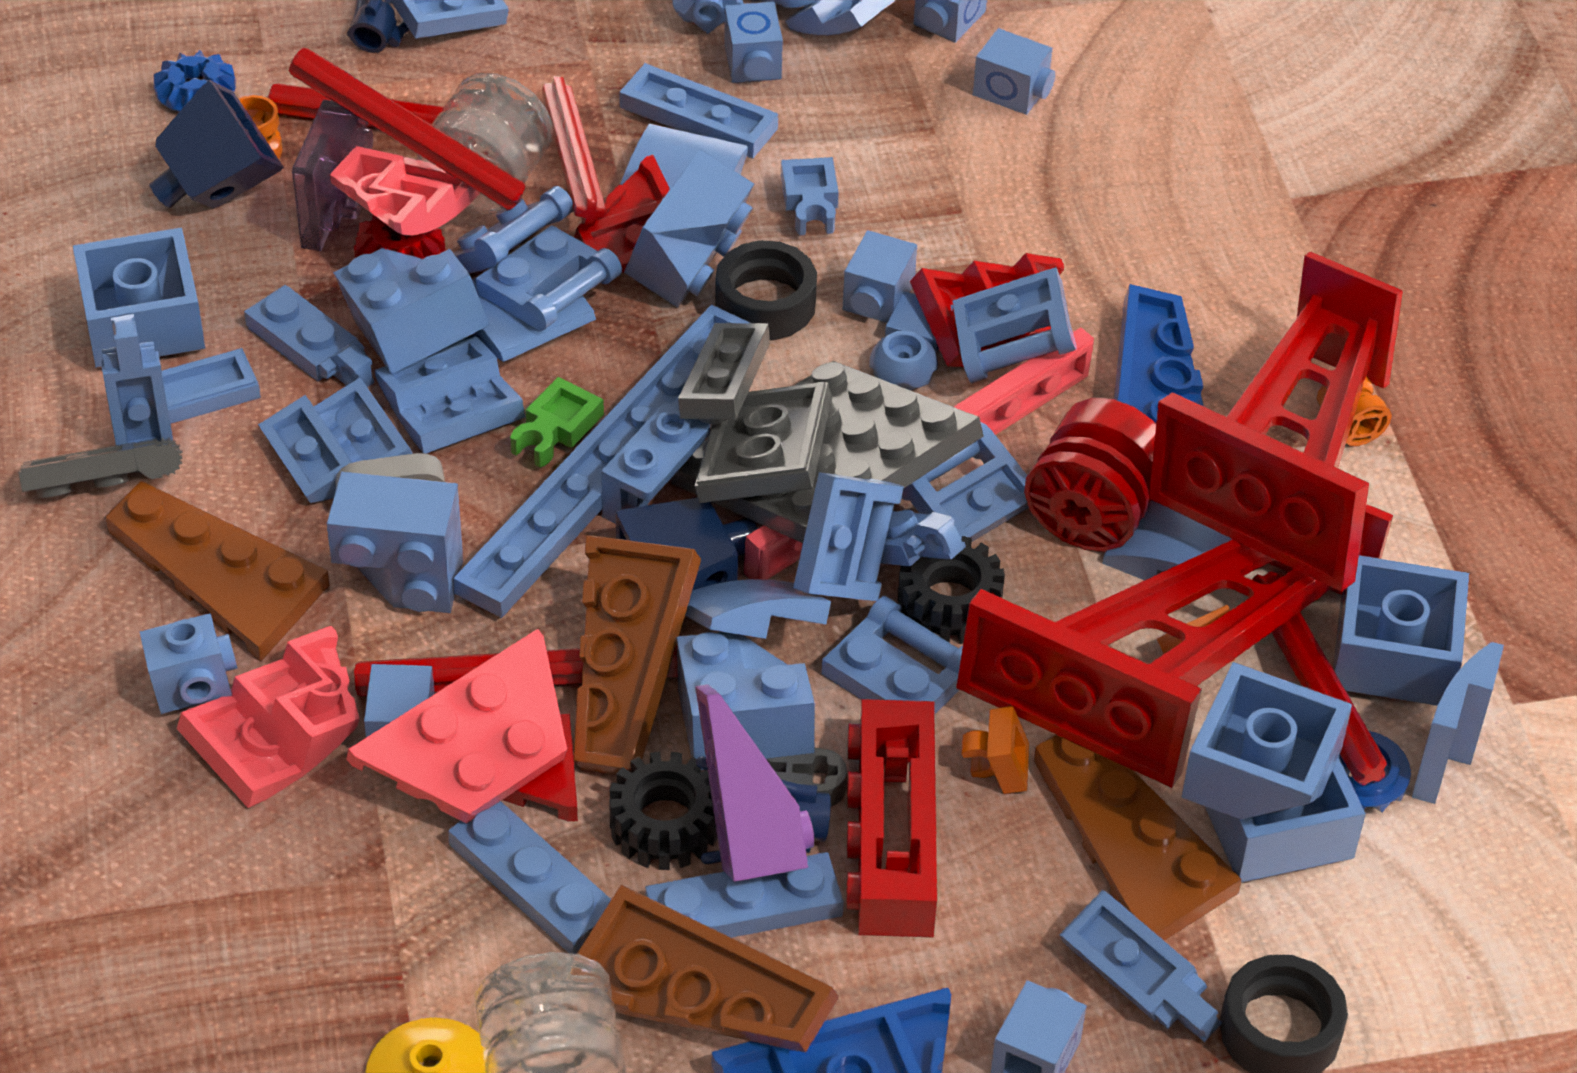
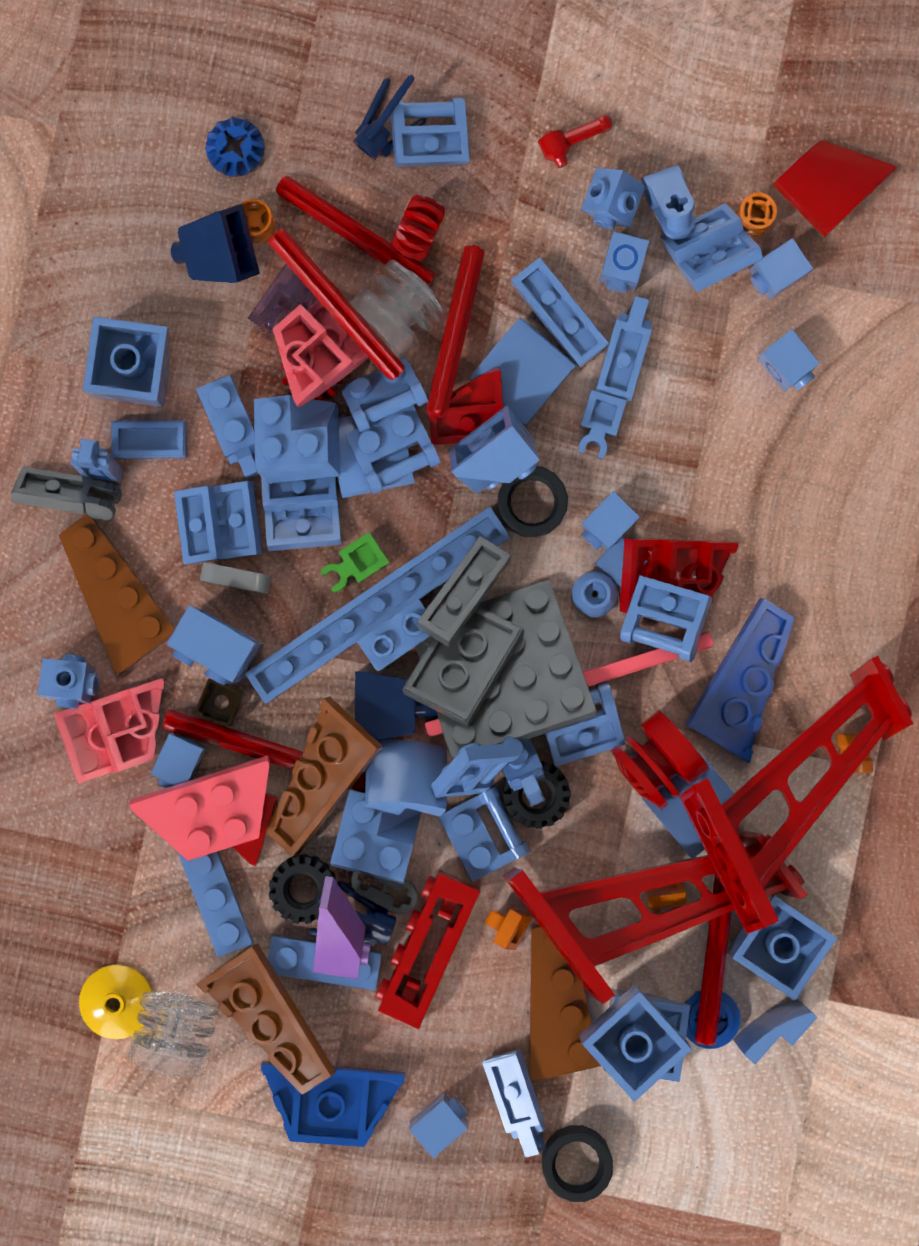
camera: 25 degrees right, 40 degrees up
(430, 617) = (207, 707): none -> dark brown piece
(473, 53) = (418, 227): none -> red gear
(804, 117) = (625, 352): none -> medium blue hinge

